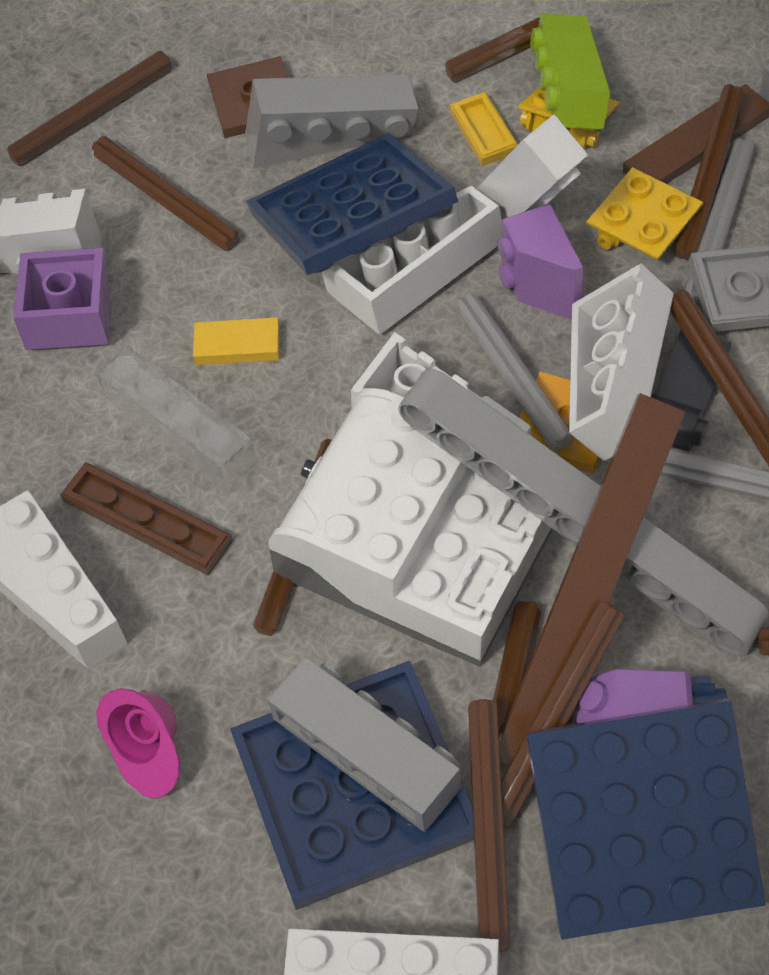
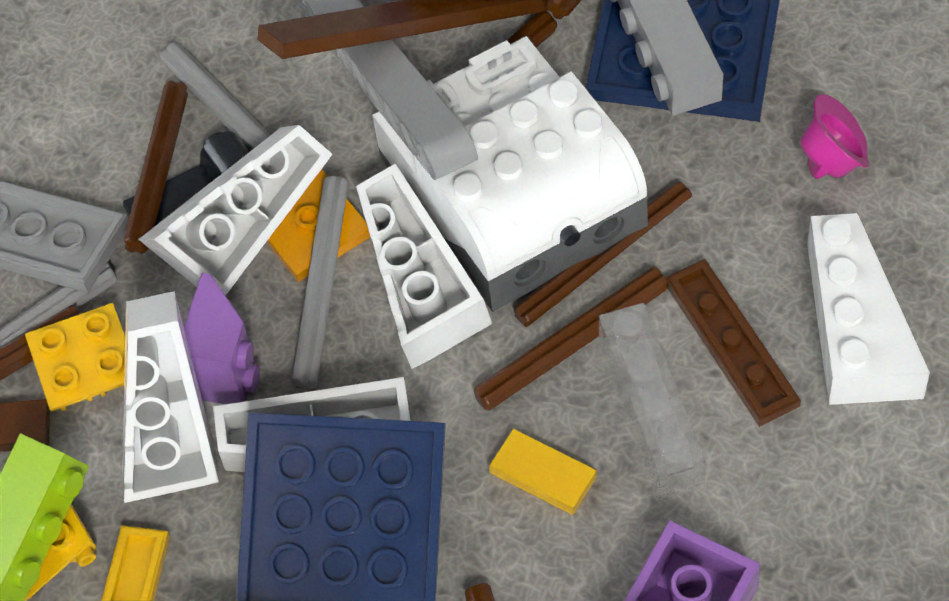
camera: 150 degrees left, 0 degrees up
(278, 450) = (566, 340): none -> reddish brown axle

